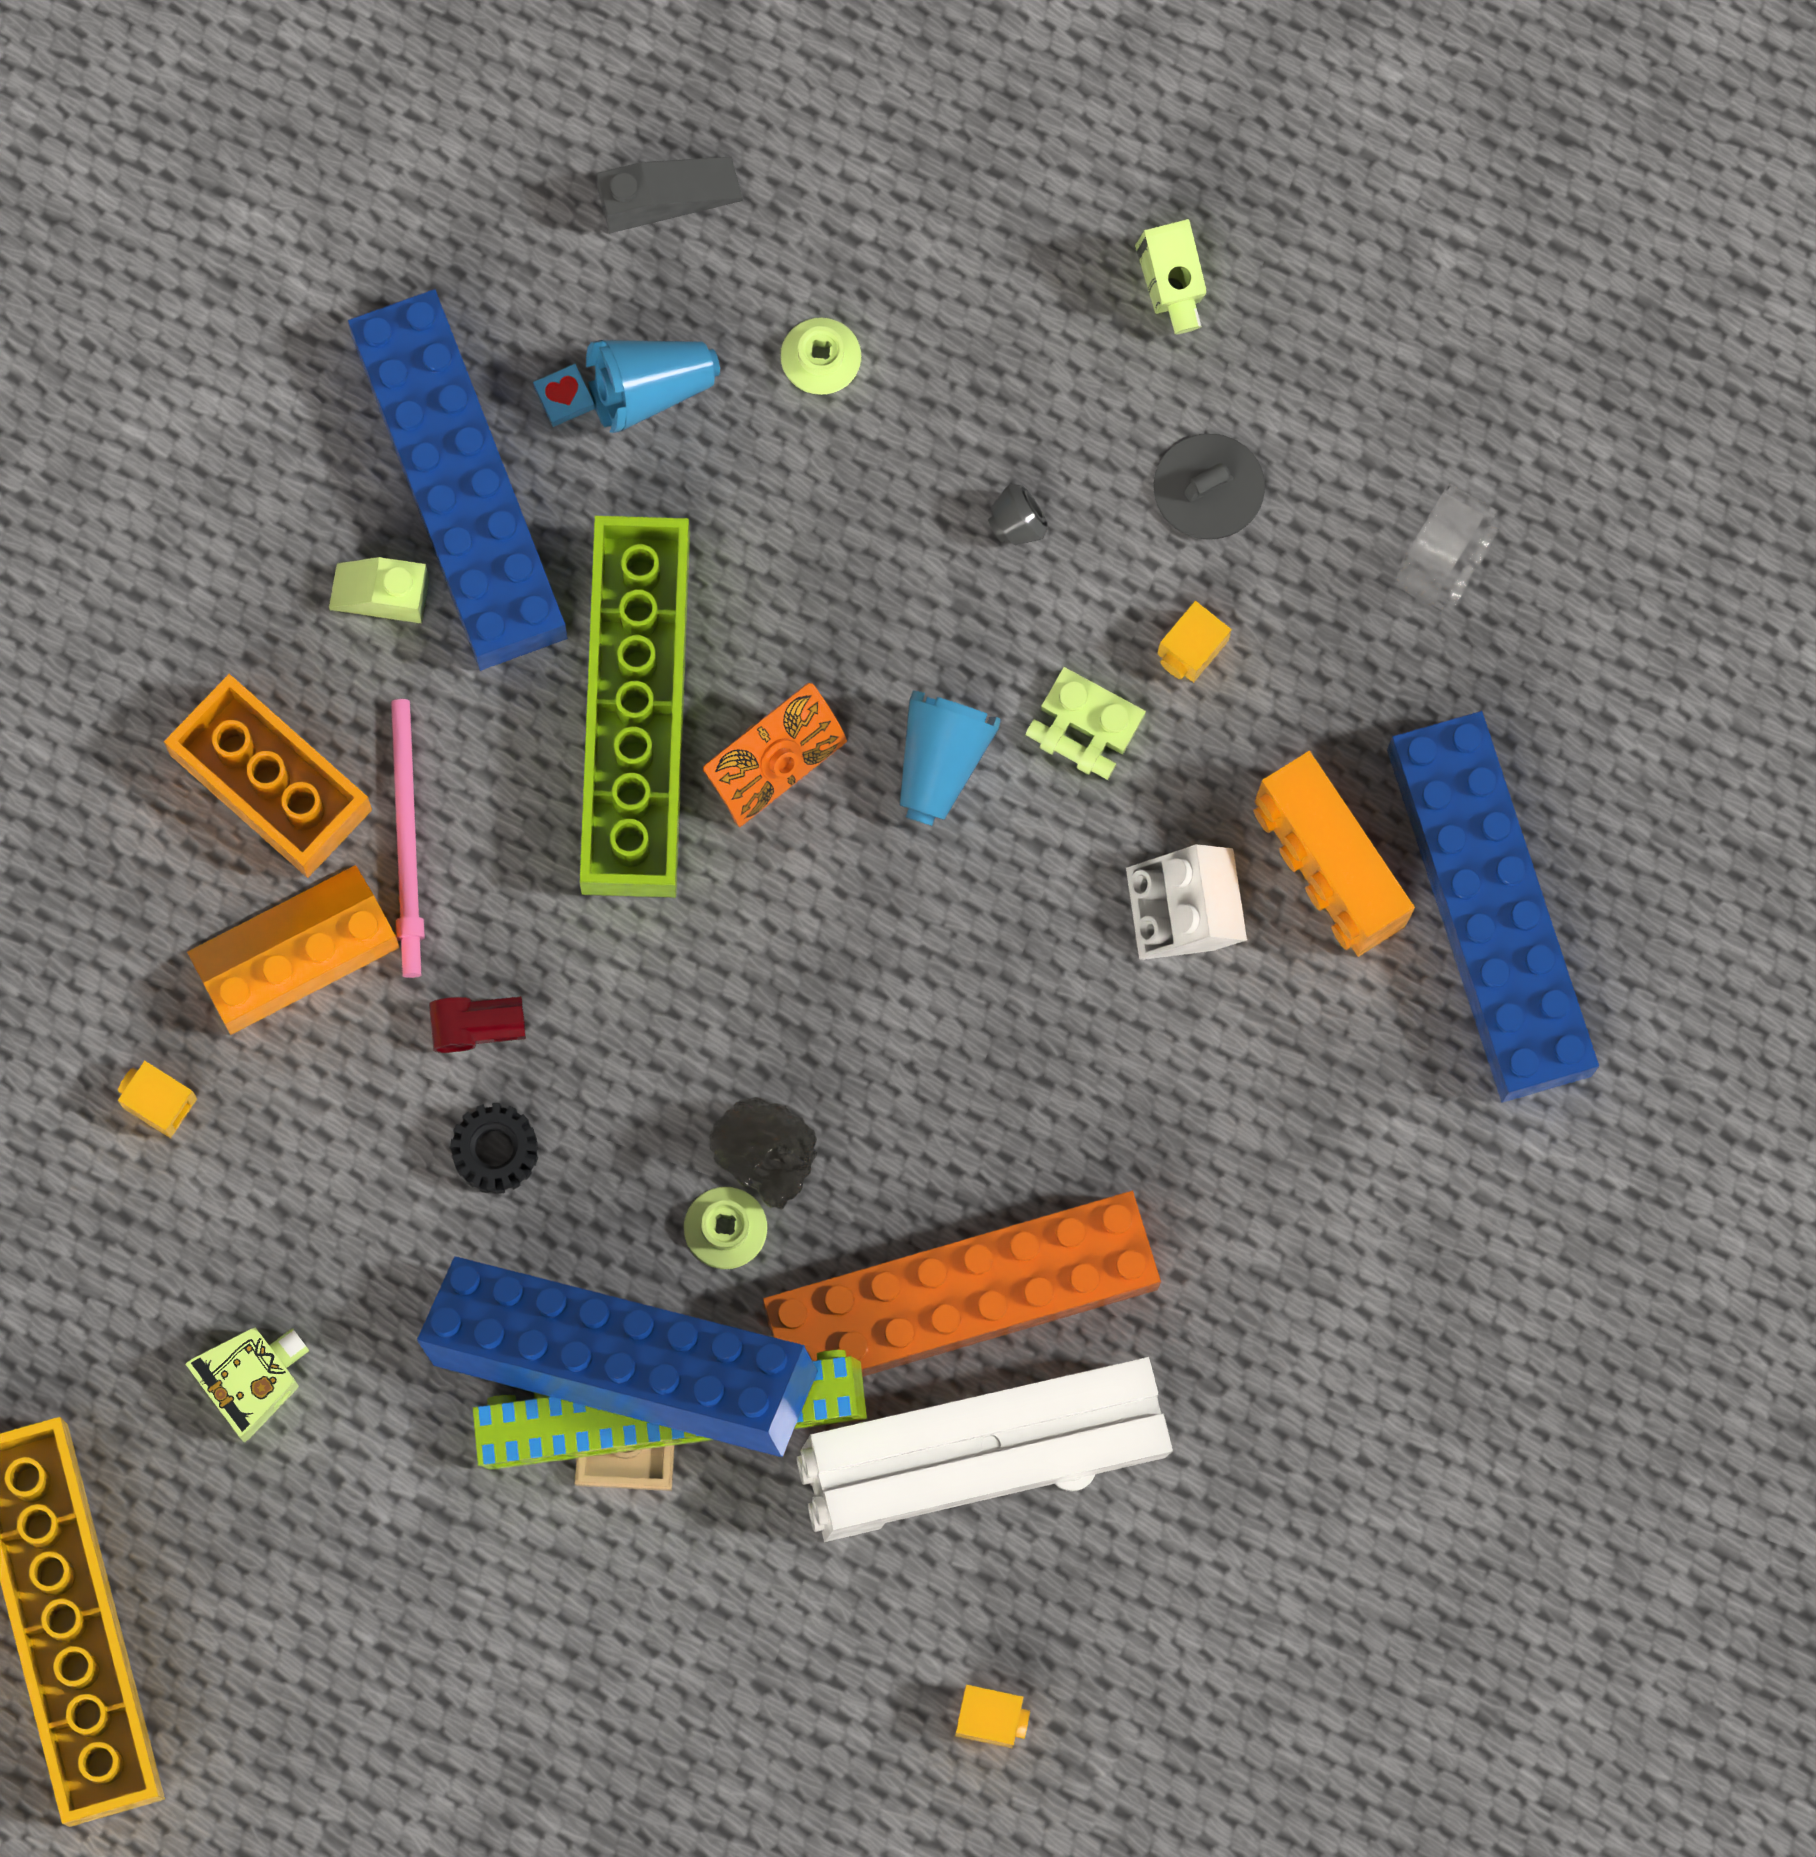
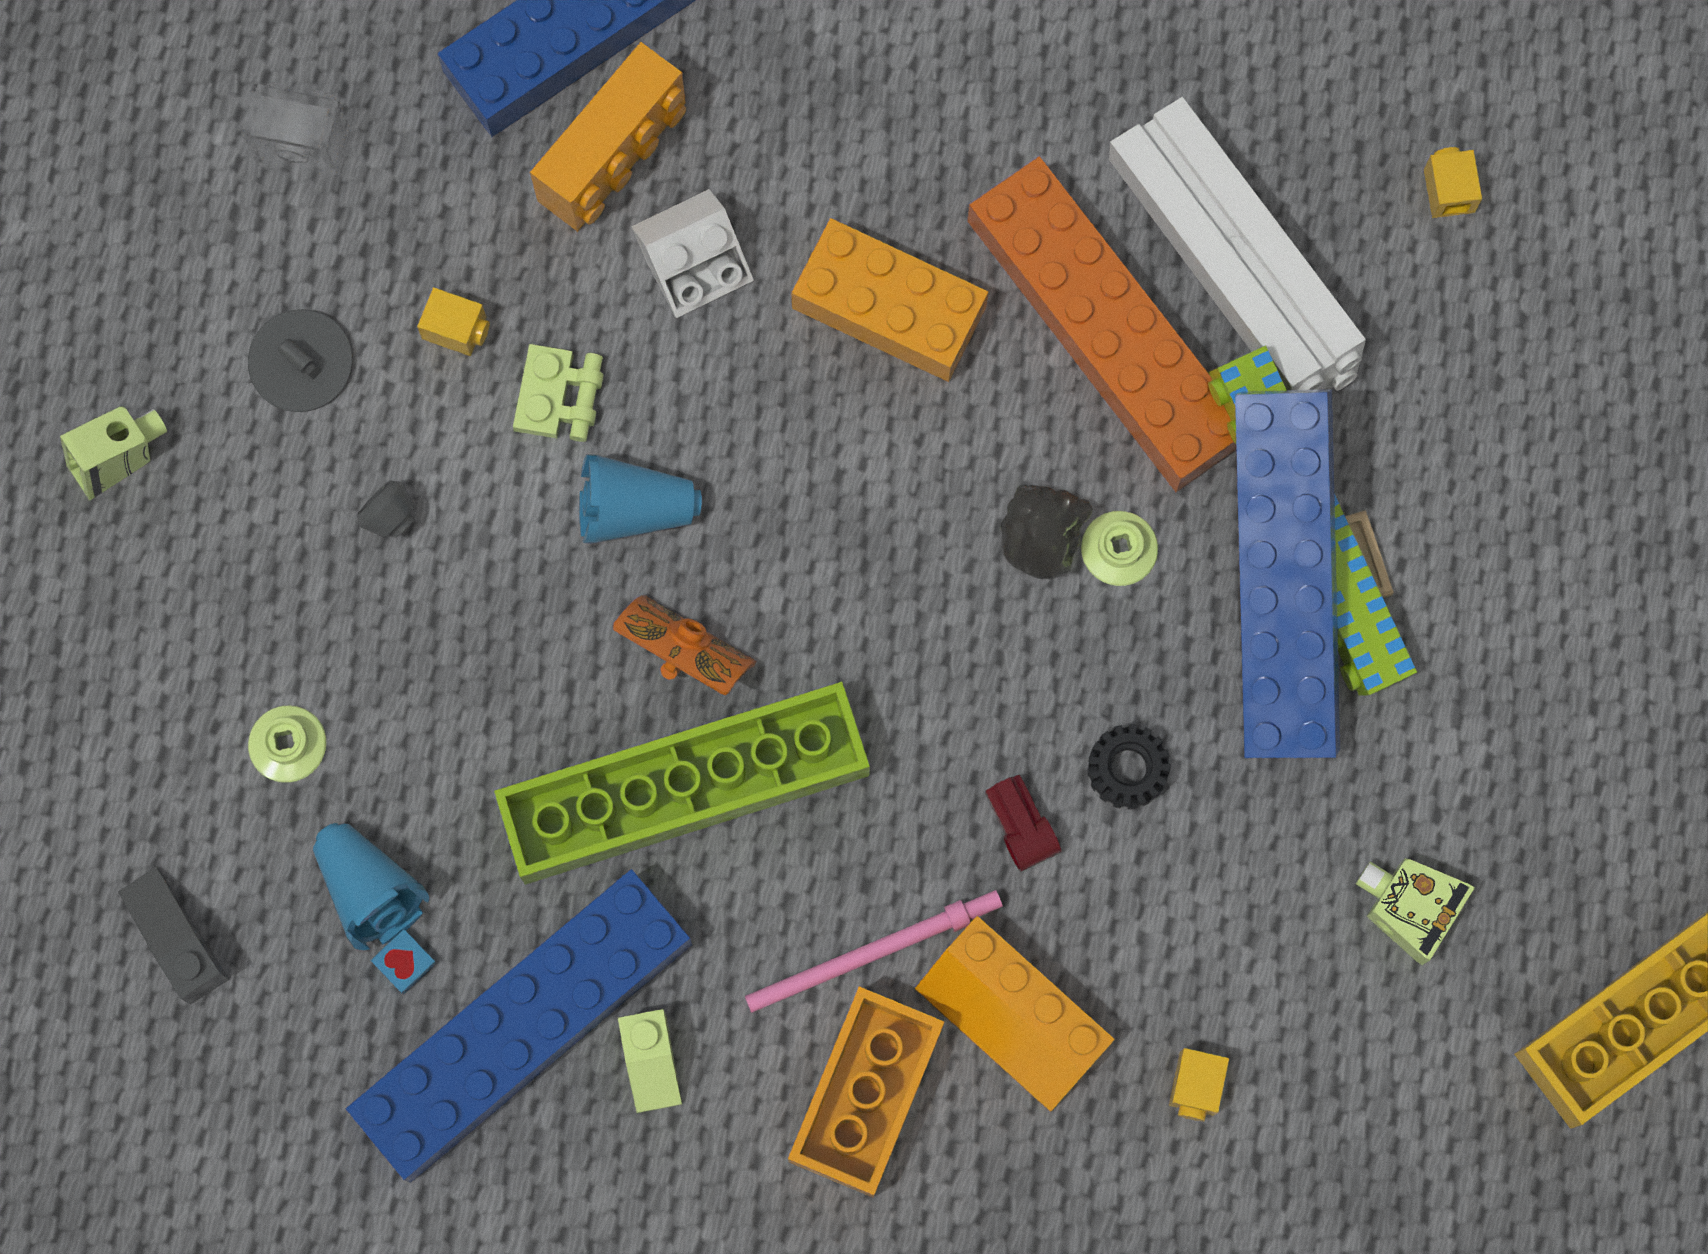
camera: 105 degrees left, 0 degrees up
(1064, 1081) = (889, 299): none -> light orange brick

